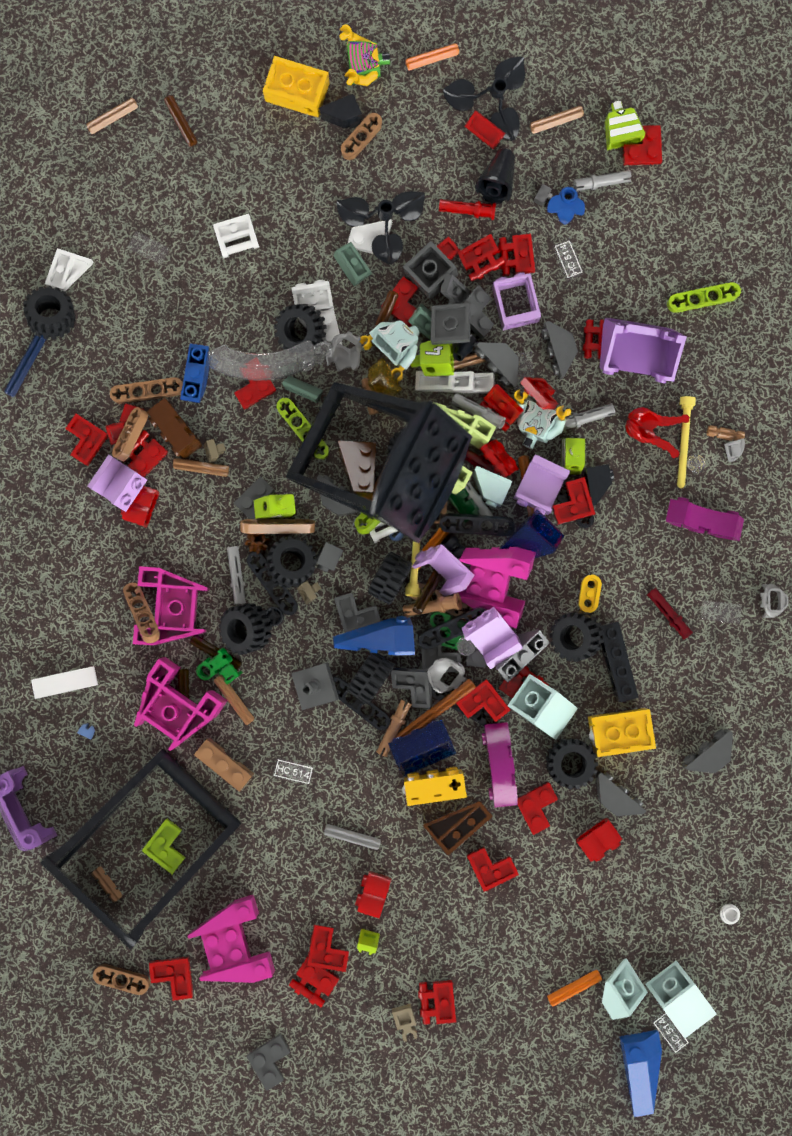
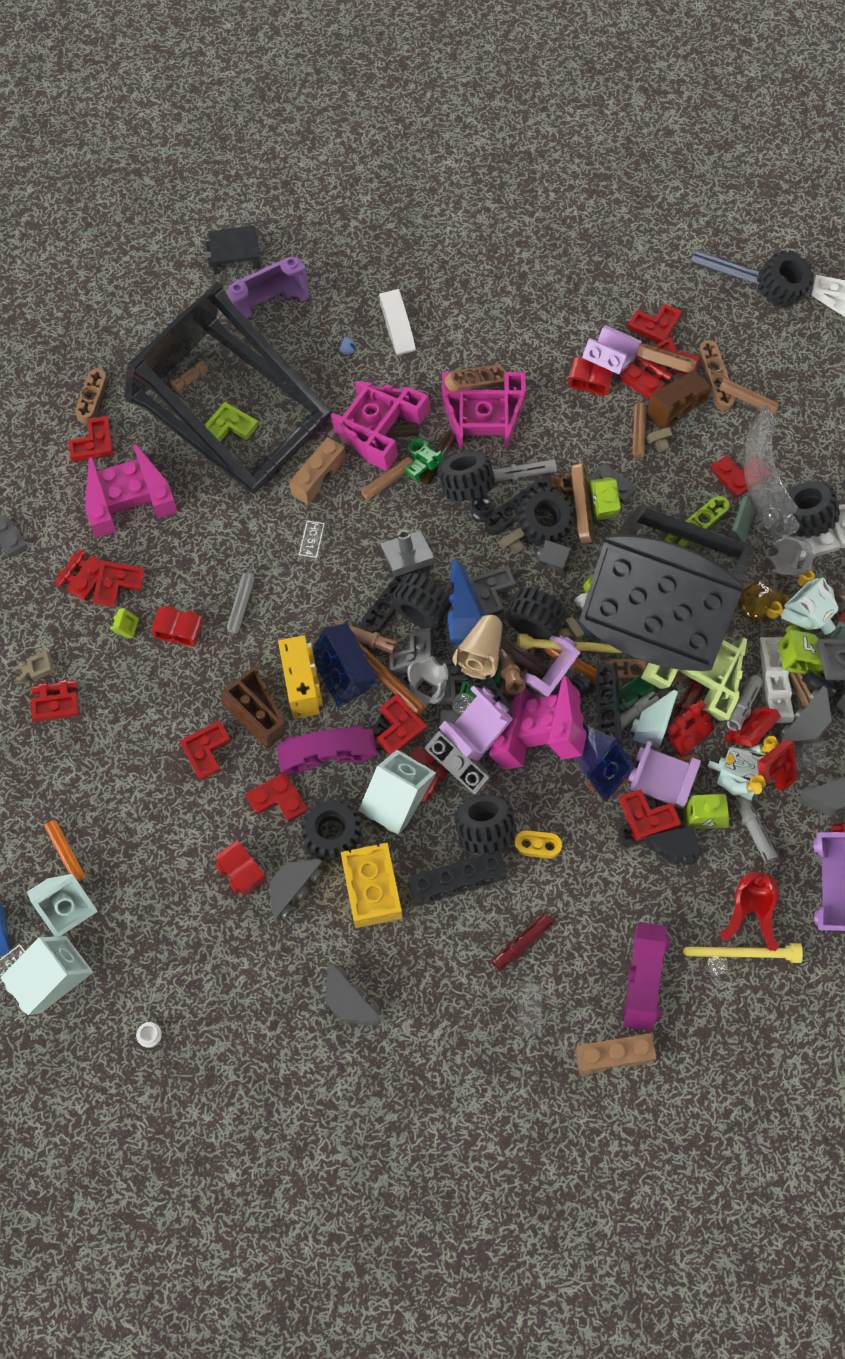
camera: 85 degrees right, 20 degrees down
(174, 366) = (748, 395): none -> medium nougat axle
(195, 373) = (735, 414): blue slope -> none
(402, 548) = (572, 630): none -> dark tan tile
(424, 627) = (480, 649): none -> tan cone
(724, 433) = (761, 1004): medium nougat axle -> none
(734, 449) = (742, 1015): light grey tile -> none
(761, 536) = (613, 1053): none -> medium nougat arch
(782, 601) = (549, 1081): light grey helmet -> none

